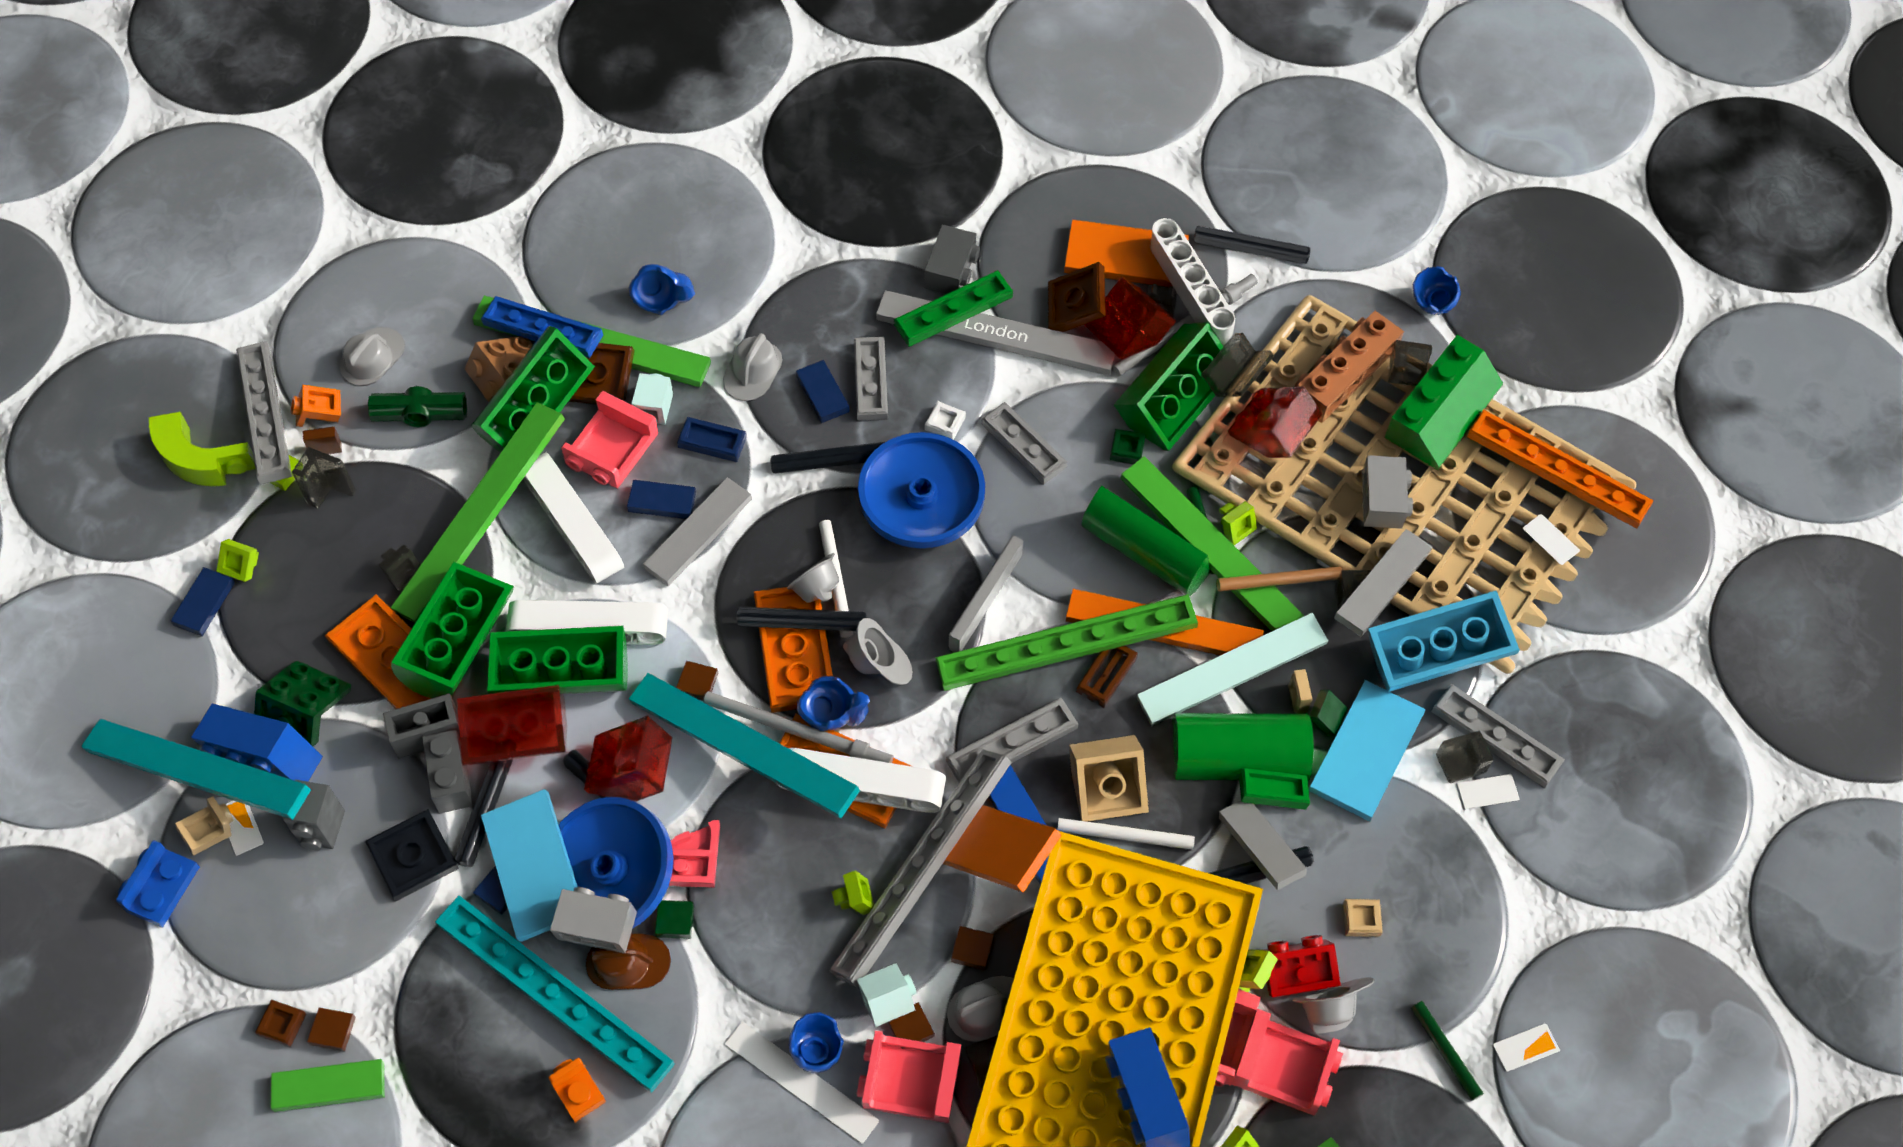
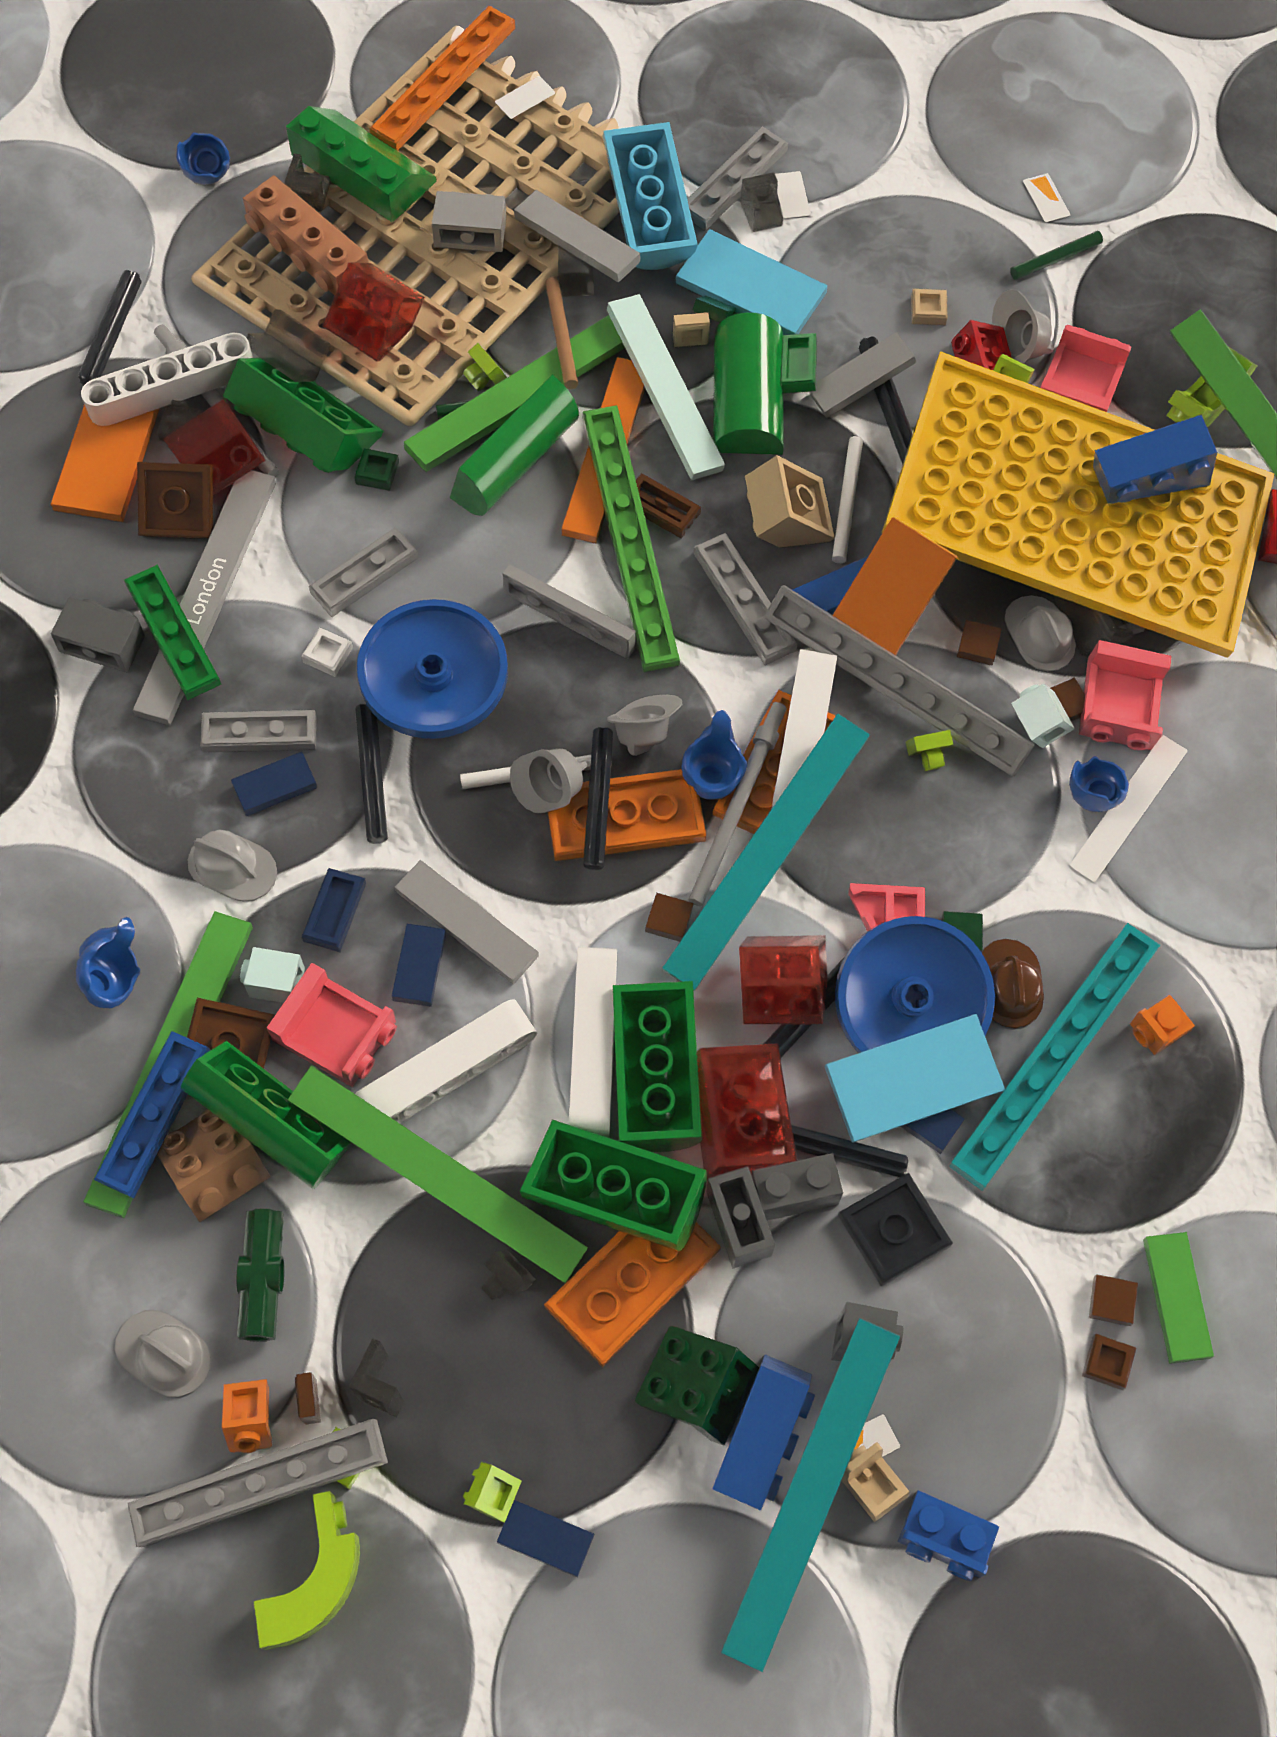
camera: 90 degrees left, 5 degrees up
(594, 919) = (995, 991): light grey brick -> none

